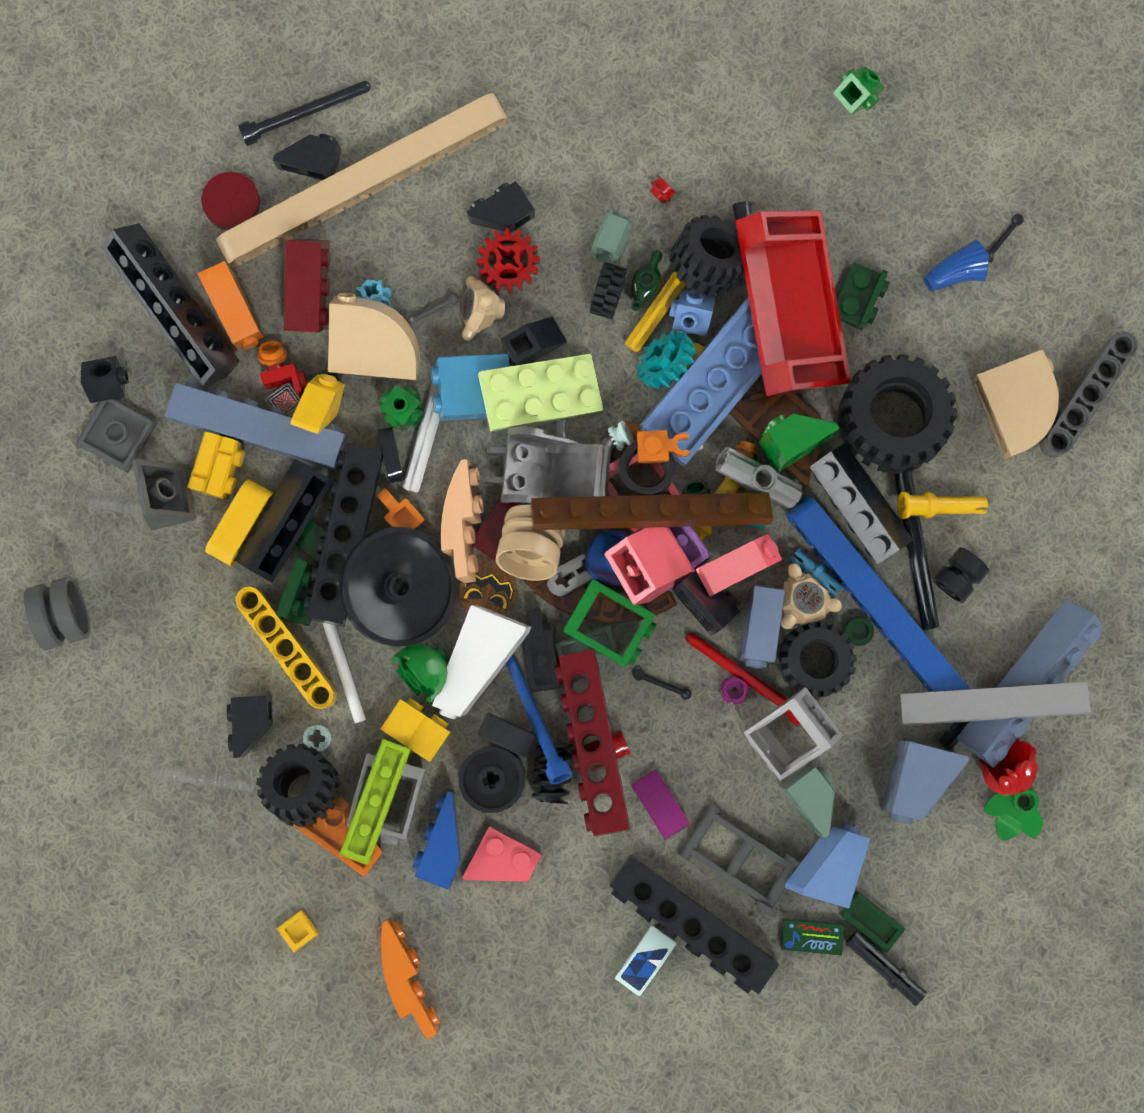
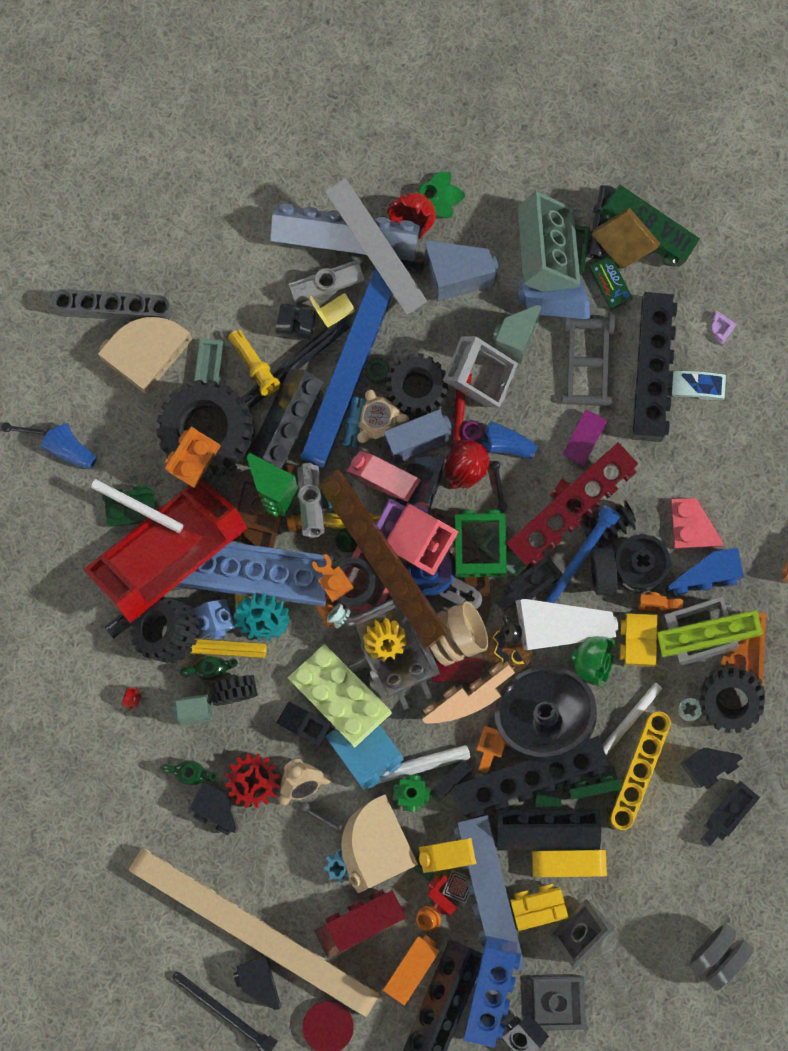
camera: 120 degrees left, 5 degrees down
(162, 368) = (484, 1029): none -> blue brick
(191, 712) = (729, 813): none -> black hinge
(446, 768) = (655, 603): none -> orange plate
(502, 601) = (510, 631): none -> black piece
(553, 204) = (189, 772): none -> dark green piece
(567, 465) = (384, 639): none -> yellow gear
(694, 1026) = (722, 327): none -> lavender tile
(703, 662) = (466, 464): none -> red hair
(704, 719) = (504, 440): none -> blue piece
(850, 980) = (625, 238): none -> pearl gold tile
(850, 1015) = (674, 239): none -> dark green brick
(855, 298) = (137, 506): none -> white bar
(873, 376) = (191, 456): none -> orange bracket
(892, 892) = (548, 244): none -> sand green slope
(950, 621) = (334, 310): none -> light yellow bracket
(968, 461) = (208, 360): none -> sand green tile
(988, 612) = (342, 277): none -> light grey piece

